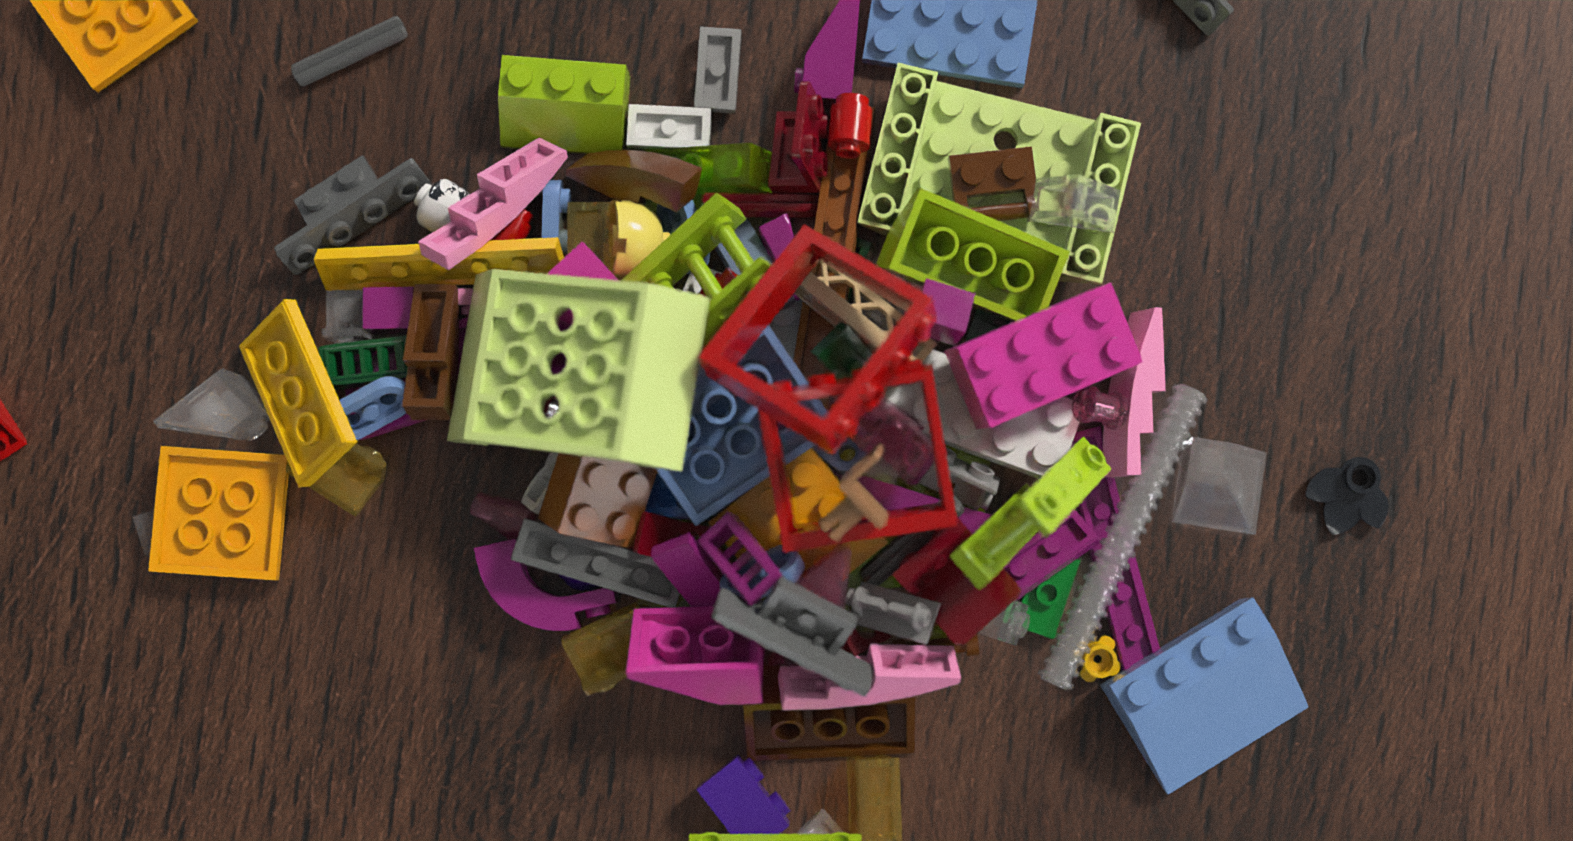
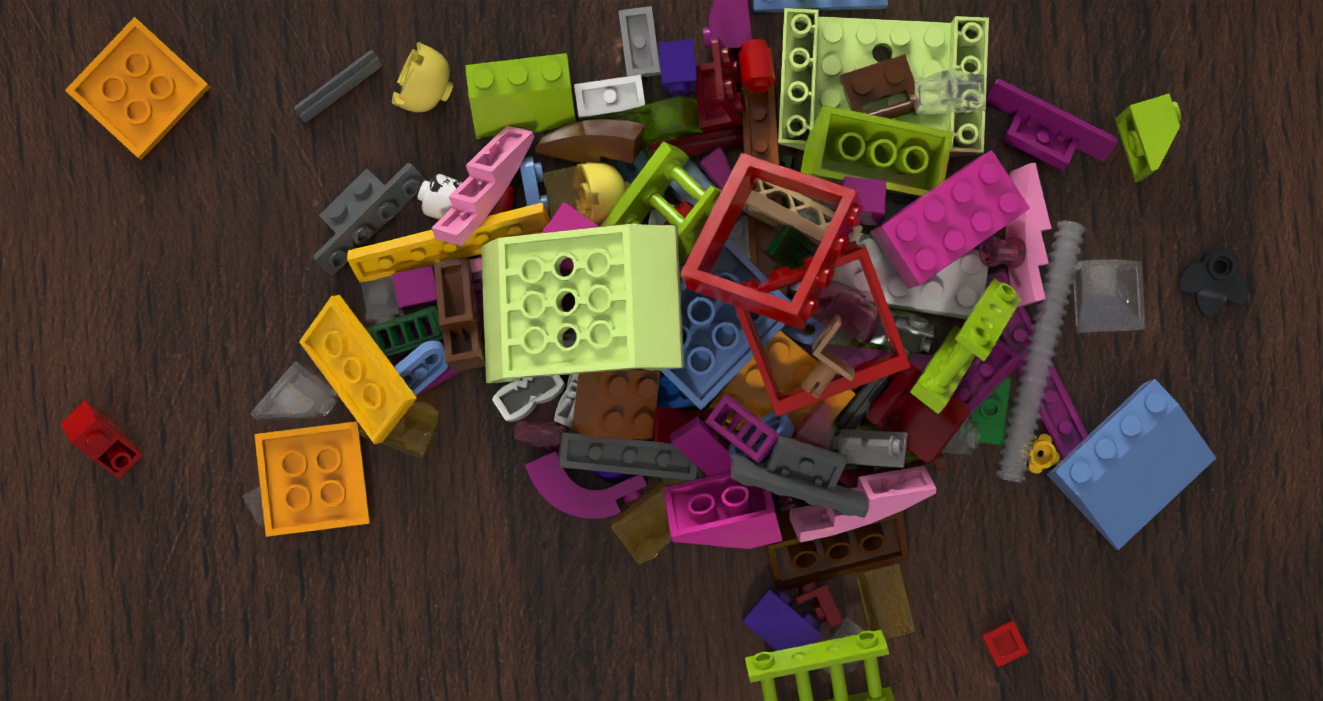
camera: 10 degrees left, 0 degrees up
(450, 64) = (423, 80): none -> light yellow cylinder
(487, 467) = (521, 397): none -> white brick
(754, 109) = (677, 68): none -> dark purple brick
(800, 792) = (825, 607): none -> dark red bracket
(1184, 271) = (1047, 130): none -> magenta bracket
(1305, 298) = (1148, 133): none -> lime slope

